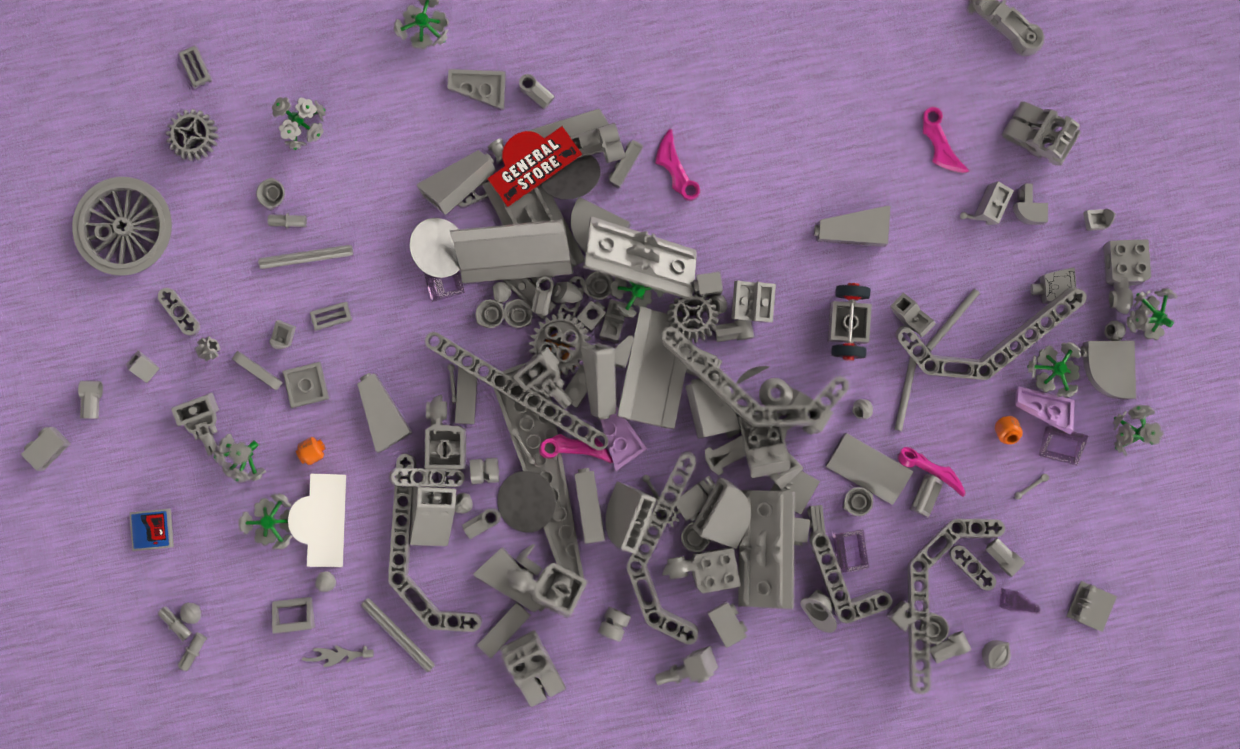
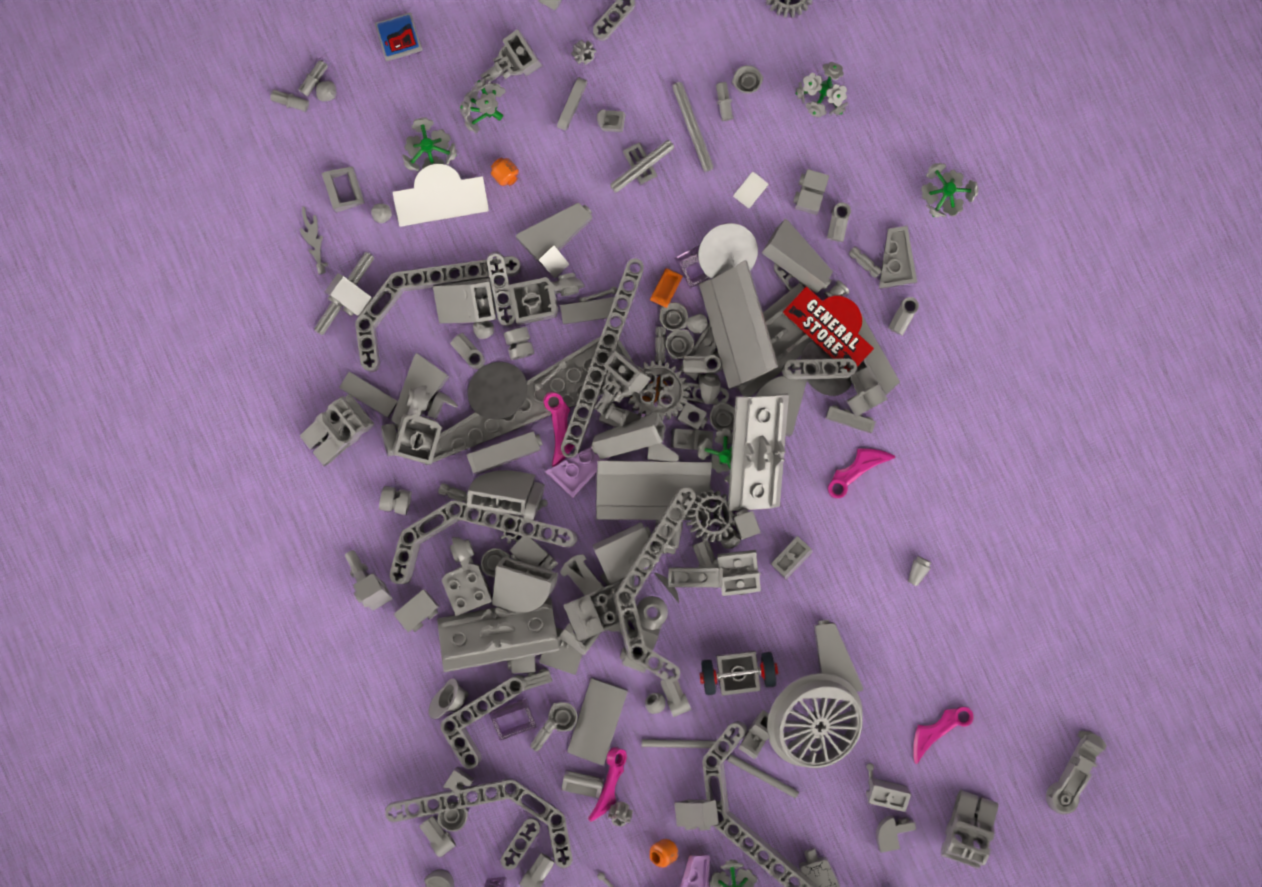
camera: 80 degrees right, 0 degrees up
(305, 385) = (567, 153): light grey tile -> none
(334, 314) = (642, 166): none -> light grey axle
(380, 213) = (750, 190): none -> white sticker
(394, 154) = (811, 192): none -> light grey piece
(401, 630) = (347, 294): none -> brick
(410, 419) = (554, 261): none -> white sticker
(432, 135) = (838, 224): none -> light grey piece
(460, 315) = (666, 287): none -> orange tile
(475, 117) = (865, 262): none -> light grey axle
(514, 332) = (660, 342): none -> light grey axle
(549, 617) = (389, 435): none -> light grey hat
(571, 182) = (820, 372): none -> light grey beam
(576, 387) = (617, 414): none -> light grey bush
(619, 564) = (453, 493): none -> light grey axle
(643, 486) = (534, 501): none -> light grey beam
(748, 248) = (791, 557): none -> light grey hinge
(749, 344) = (695, 577): none -> light grey tile
(785, 129) = (919, 570): none -> light grey cone
(863, 387) = (676, 699): none -> light grey piece
(871, 522) = (543, 734): none -> light grey axle
(913, 256) = (817, 722): none -> light grey piece
(963, 464) = (620, 814): none -> light grey gear
(977, 390) = (696, 814): none -> light grey brick

